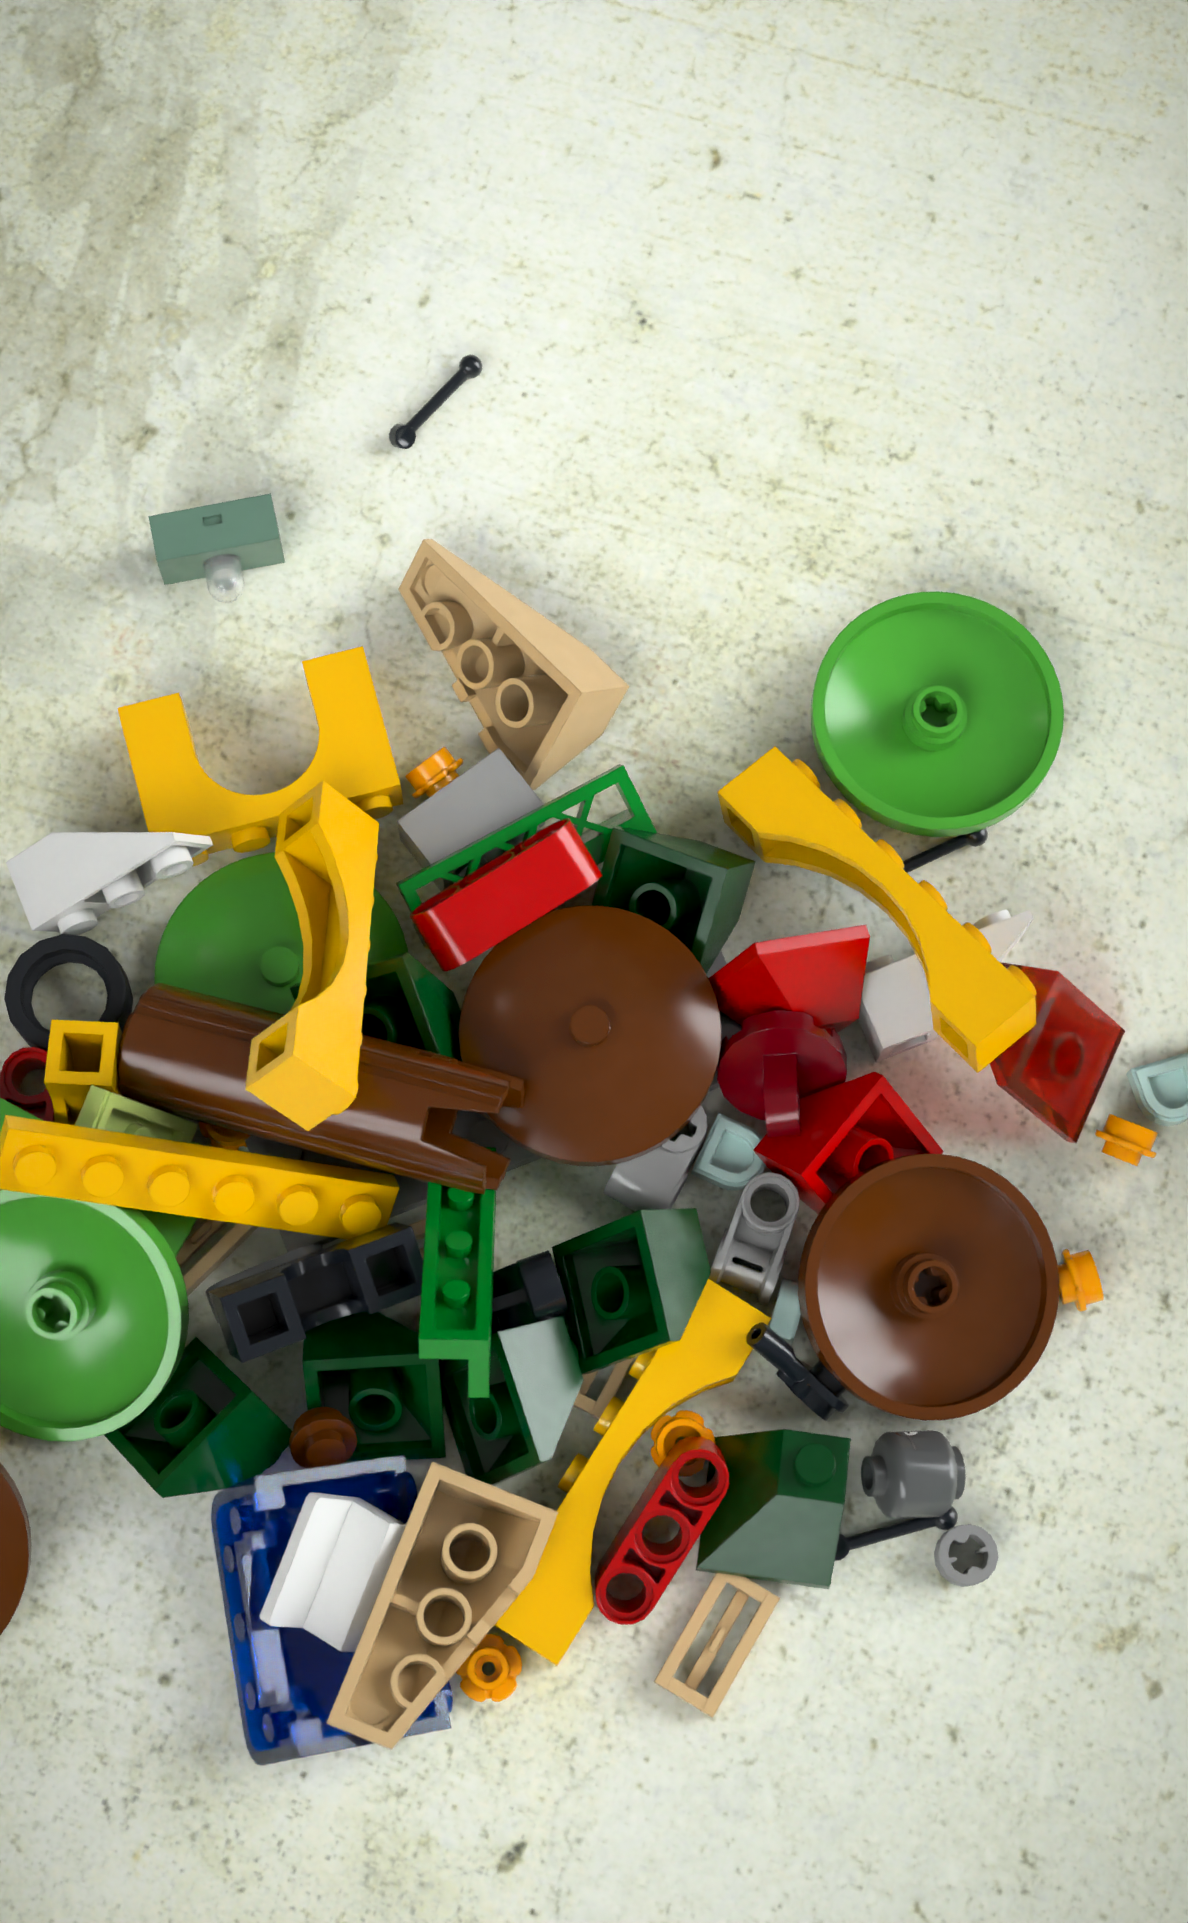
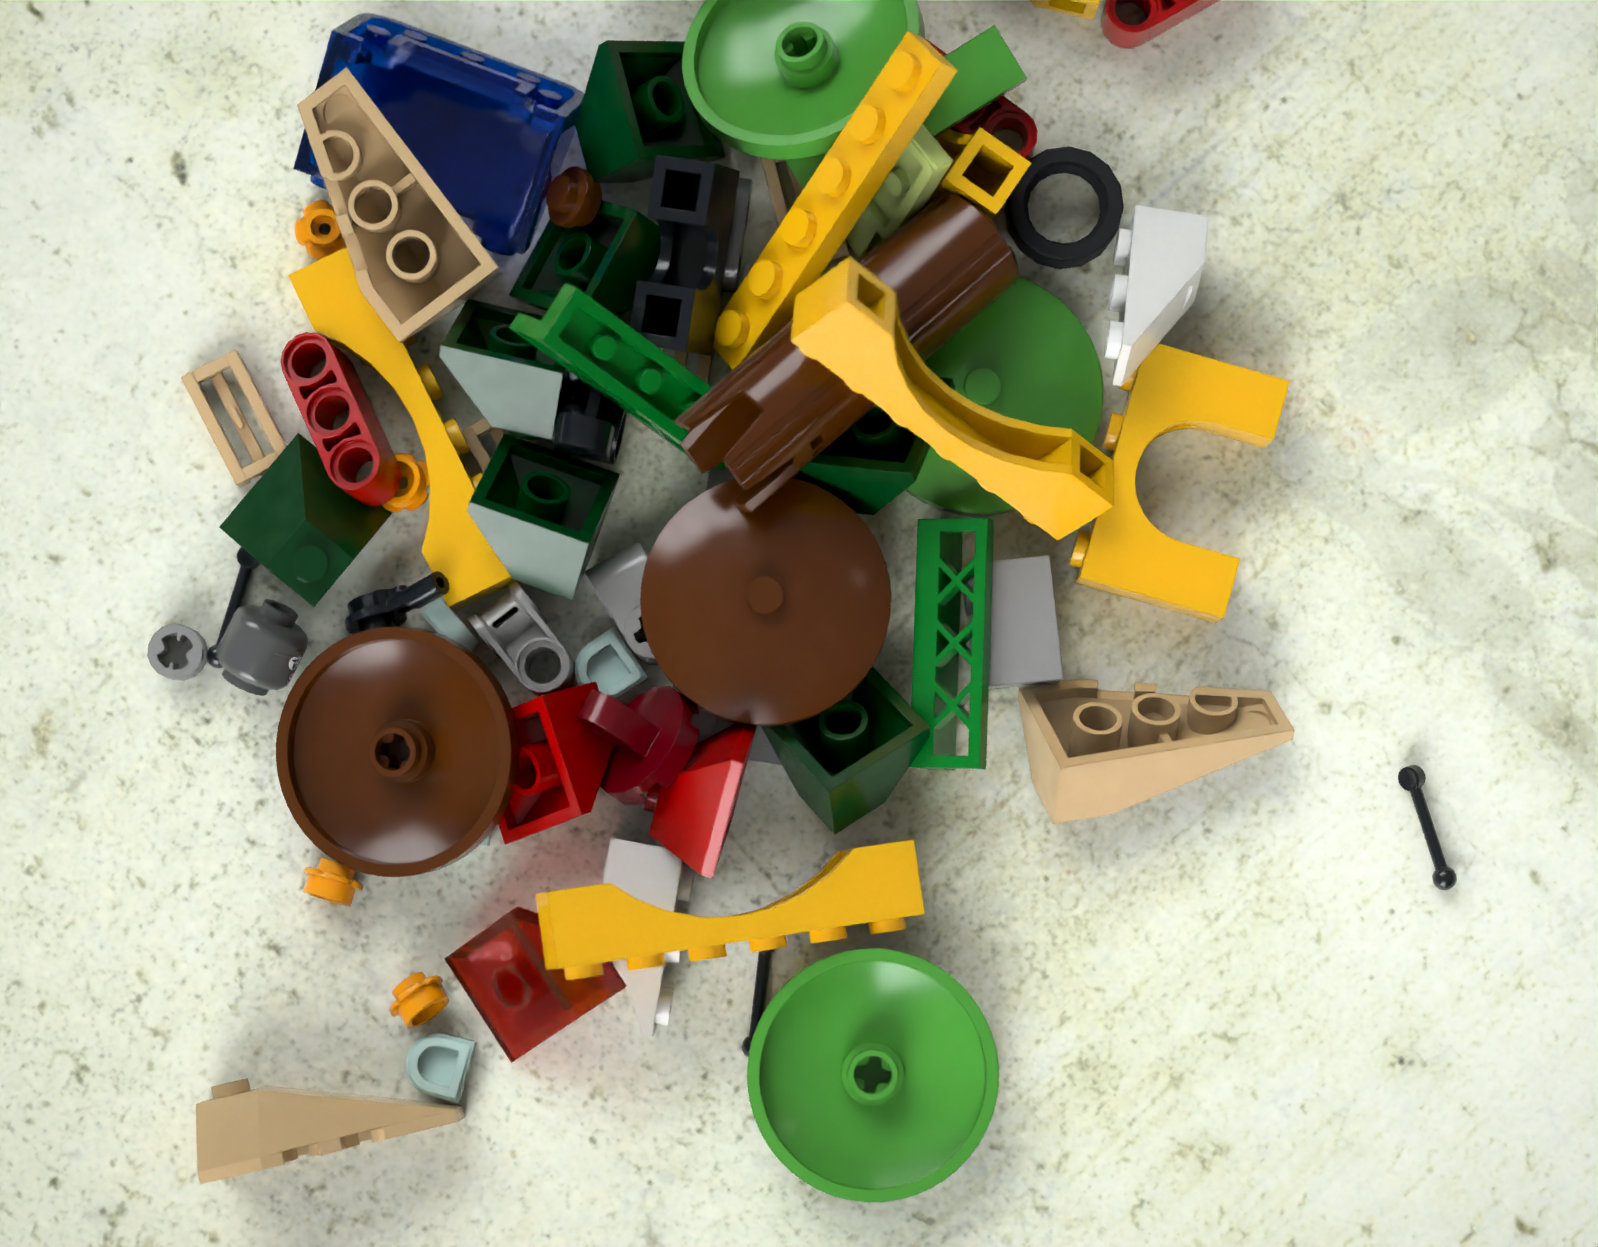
camera: 125 degrees right, 10 degrees up
(217, 543) = (1397, 555): sand green piece -> none
(333, 1569) = (466, 148): white panel -> none
(434, 773) = (1079, 619): light orange plate -> none
(505, 894) = (924, 601): red beam -> none

